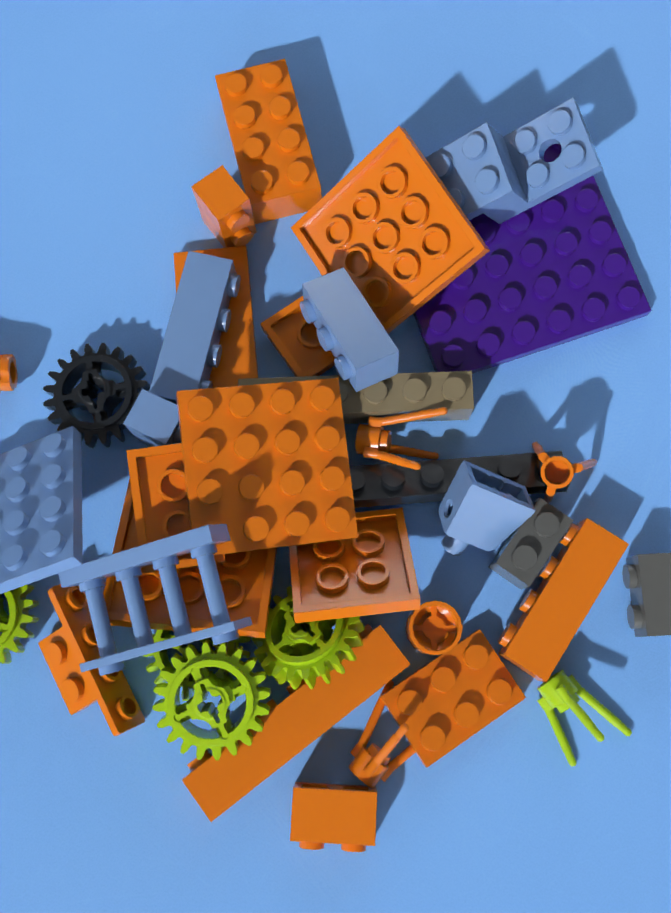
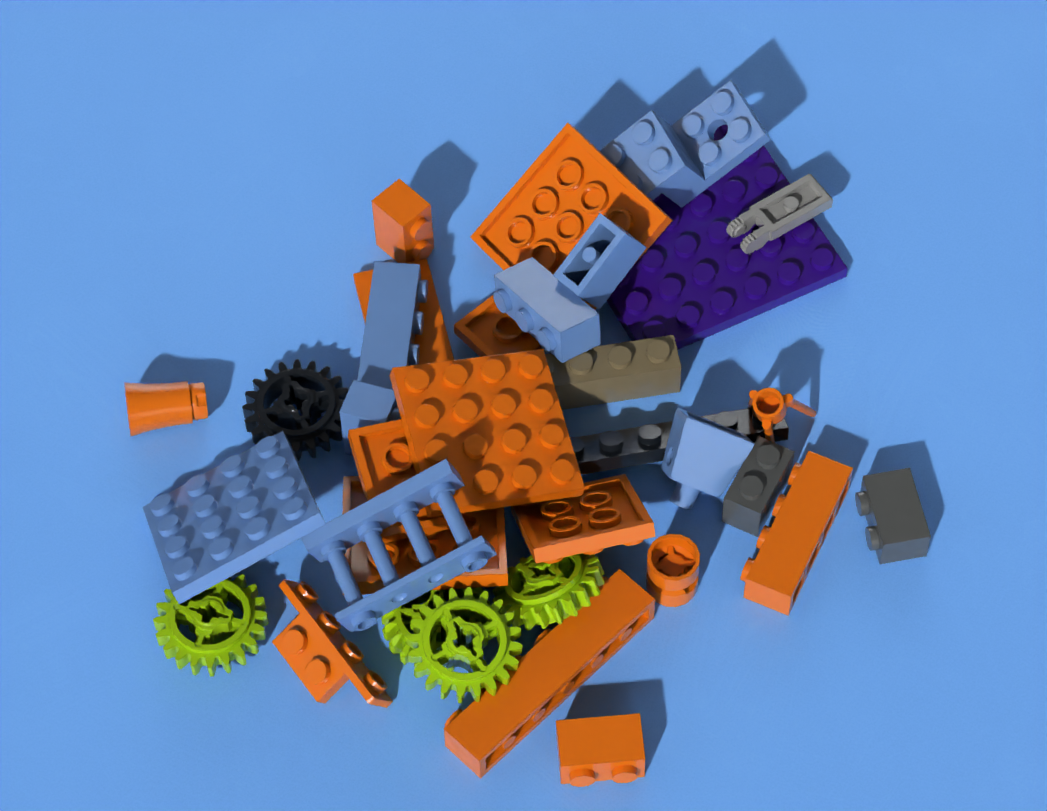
camera: 10 degrees left, 20 degrees down
(269, 140) = (436, 158): orange brick -> none
(373, 762) = (633, 697): orange plant -> none
(375, 442) = (589, 414): orange plant -> none
(408, 287) = (599, 261): none -> medium blue brick
(452, 697) = (702, 635): orange plate -> none
(563, 693) = (813, 617): lime plant -> none
(598, 244) = (780, 213): none -> light grey hinge

